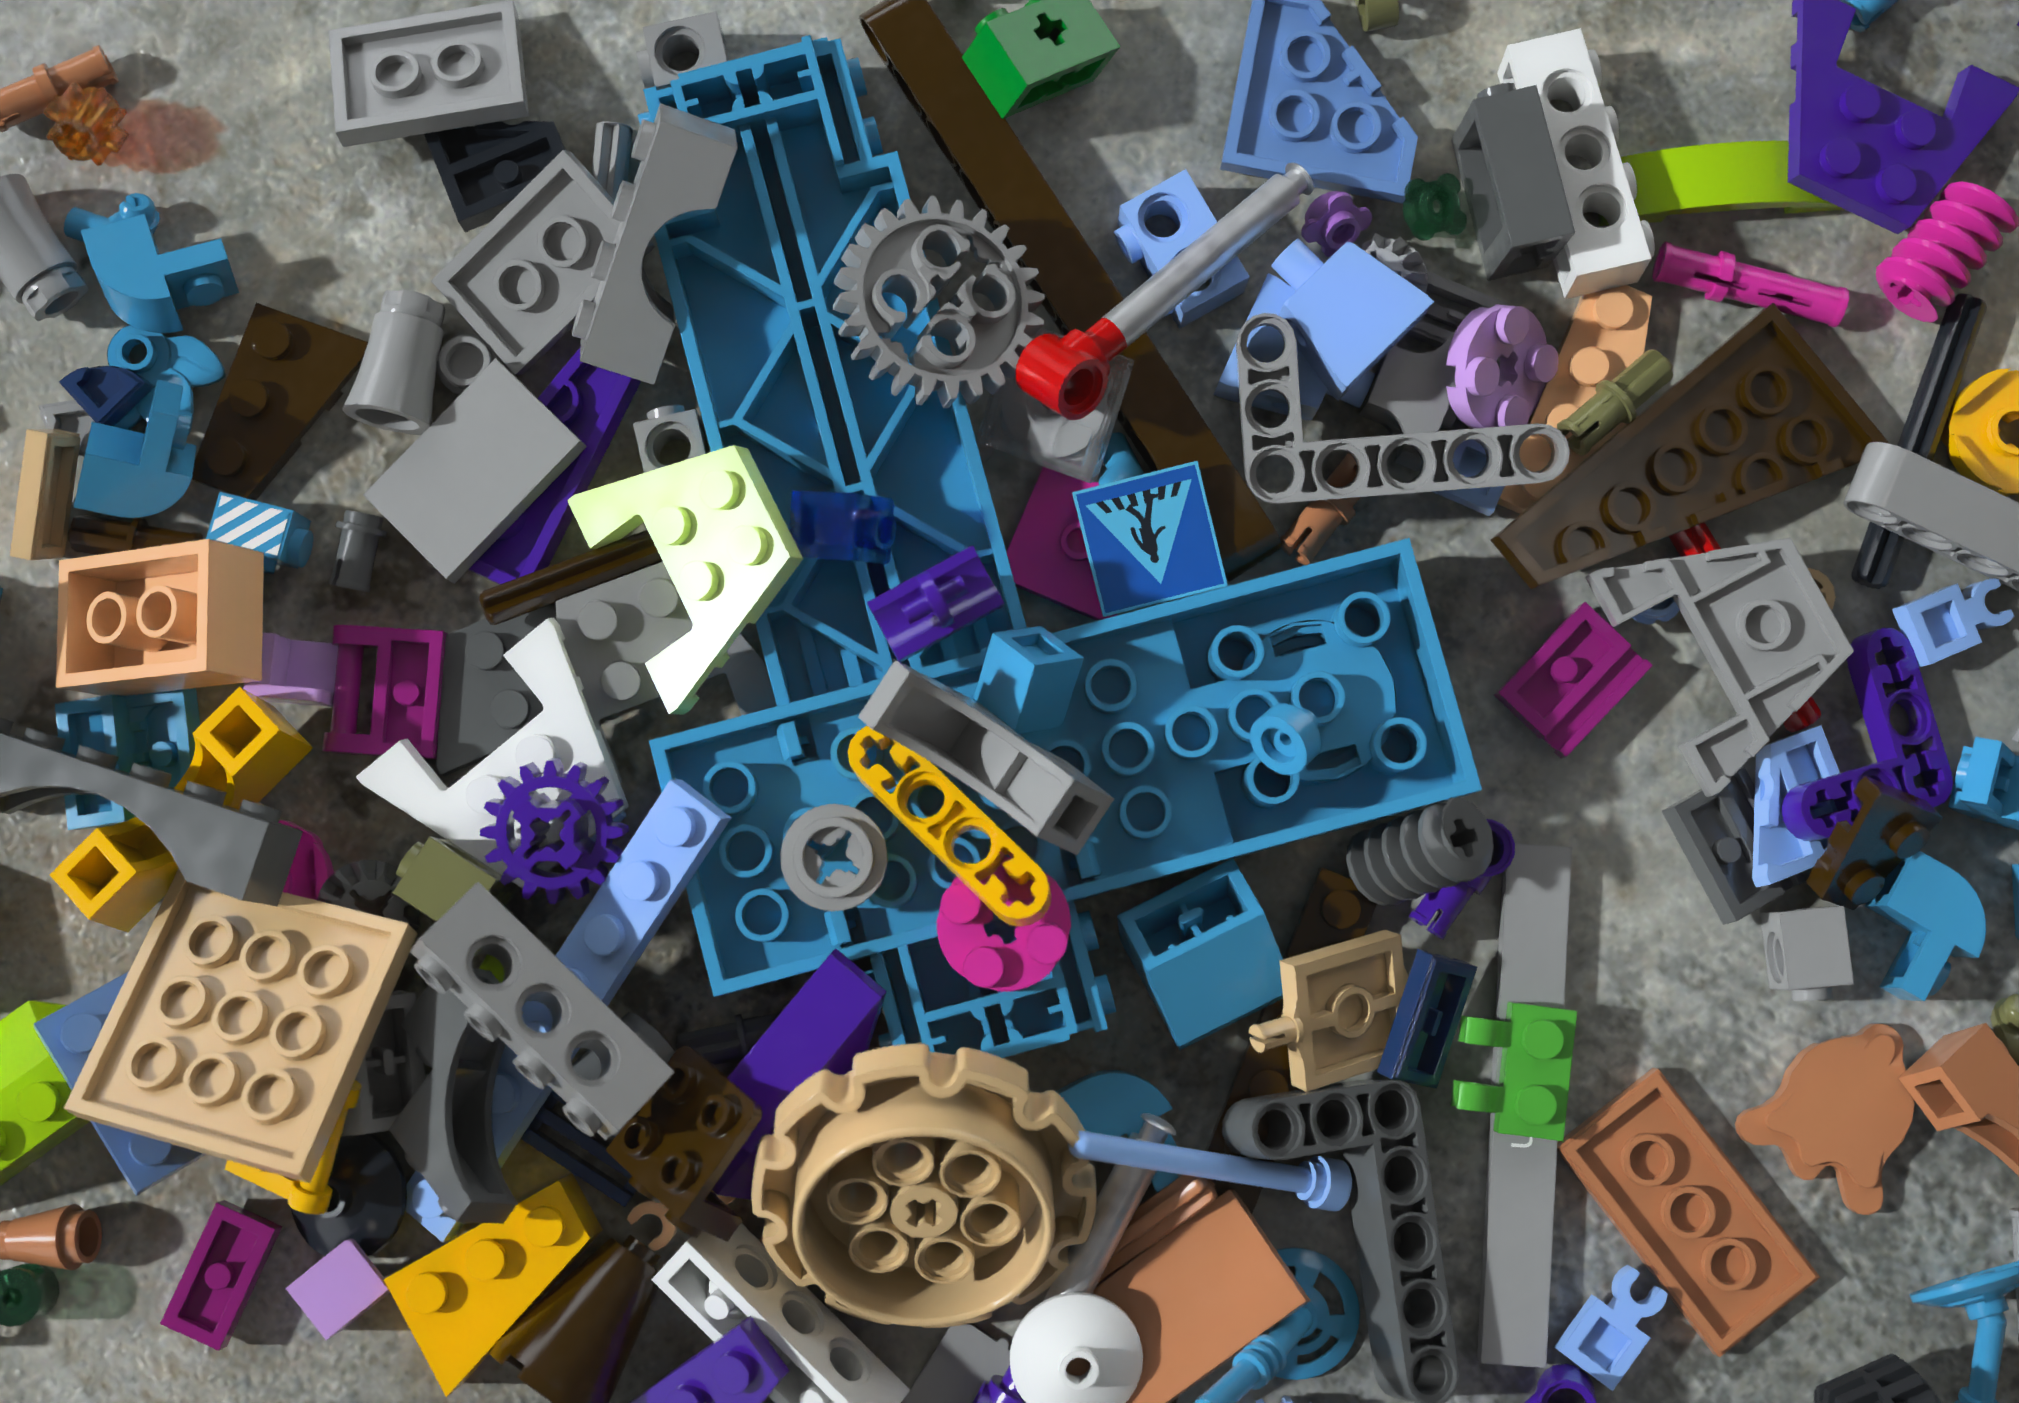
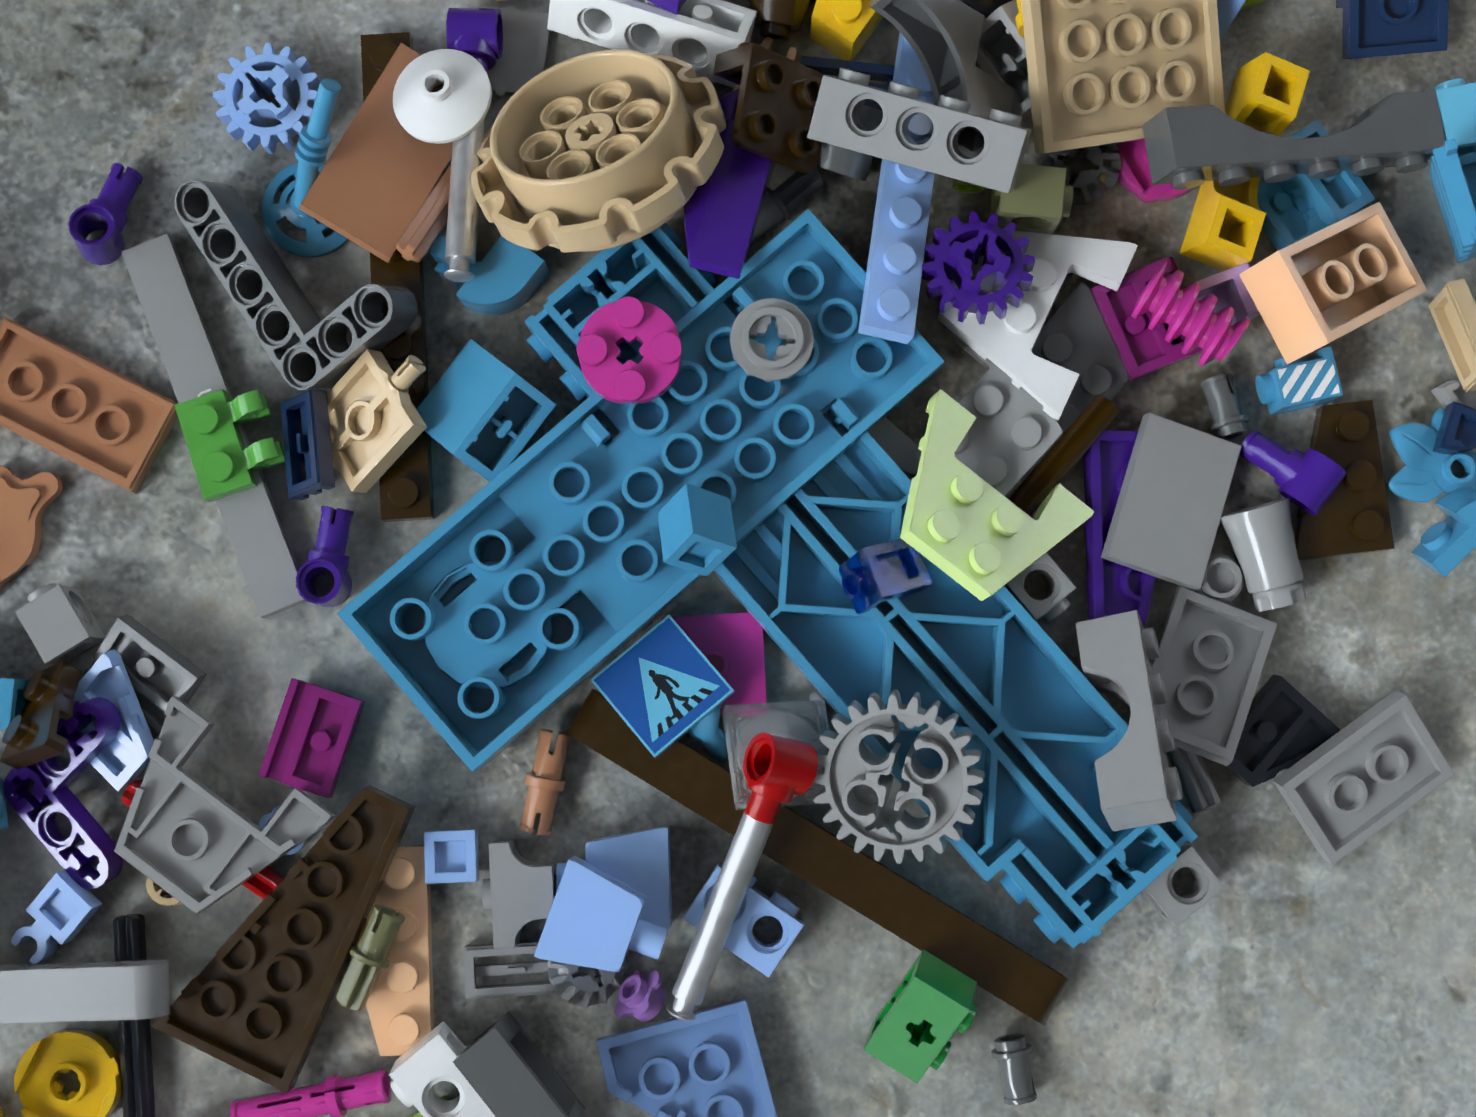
camera: 160 degrees right, 0 degrees up
(107, 536) = (1383, 337): dark brown axle -> none
(137, 471) = (1409, 384): dark azure brick -> none
(316, 429) = (1302, 477): none -> dark purple pin
(341, 662) = (1188, 316): none -> dark pink piece
(935, 604) = (787, 548): dark purple hips -> none
(945, 827) = (703, 391): yellow beam -> none
(987, 756) = (711, 460): light grey arch -> none
(1286, 738) = (491, 577): dark azure tile -> none
(1320, 1182) = (329, 294): light blue piece -> none
(1370, 453) = (528, 828): light grey beam -> none
(1419, 209) = (584, 1040): clear green plate -> none
(1420, 852) = (360, 552): dark grey piece -> none
(1495, 395) = (453, 920): lavender plate -> none
(1605, 1336) = (87, 291): light blue plate -> none

